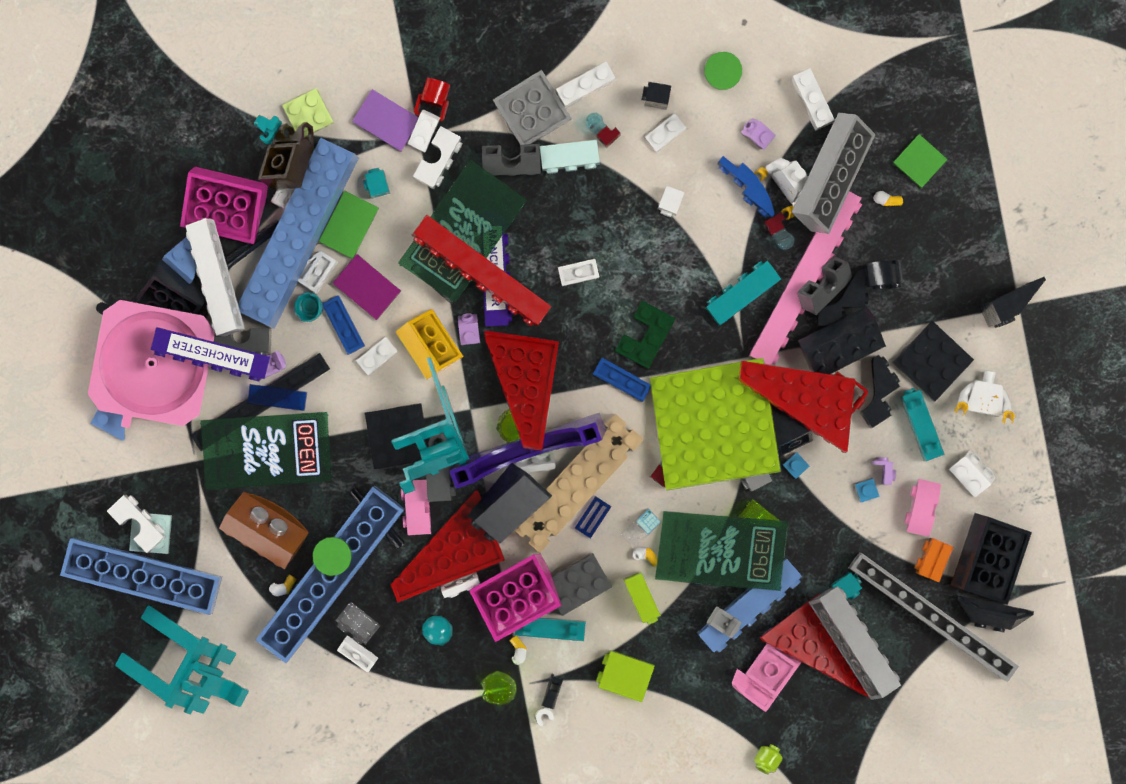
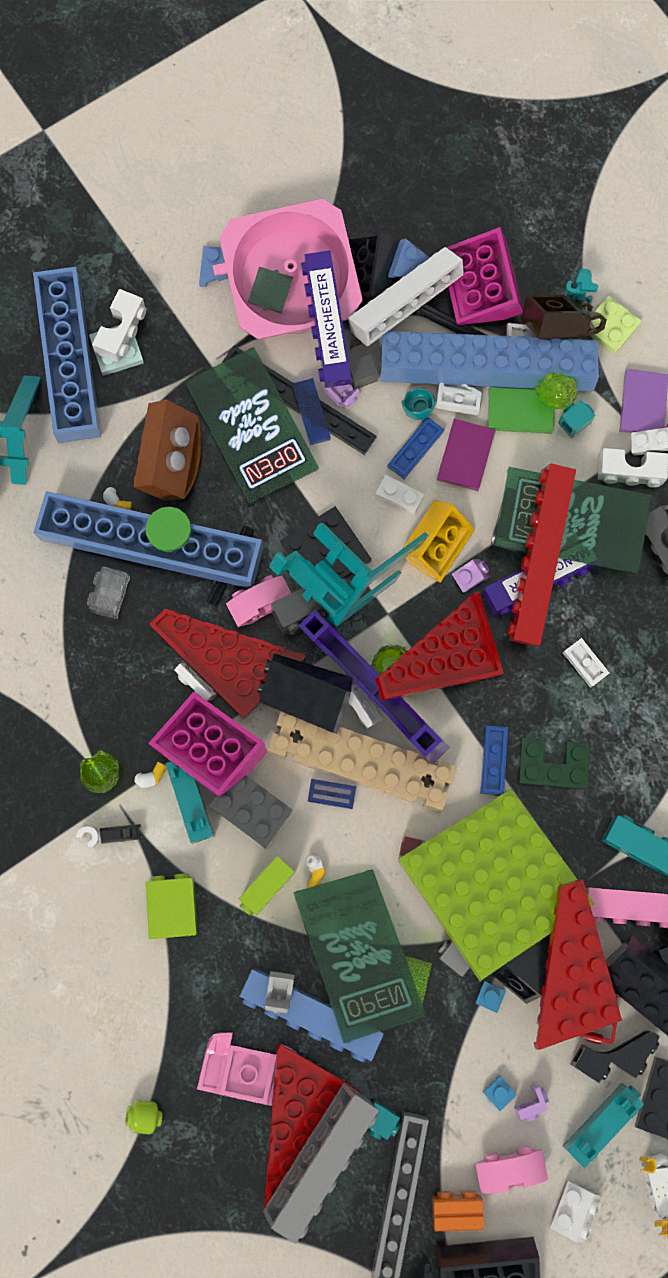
camera: 60 degrees right, 10 degrees down
(161, 387) = (270, 290): none -> clear green piece
(350, 191) = (557, 391): none -> clear neon green hair
(357, 654) = (75, 606): white plate -> none
(437, 630) = (136, 680): teal hair -> none
(640, 528) = (342, 851): slope -> none

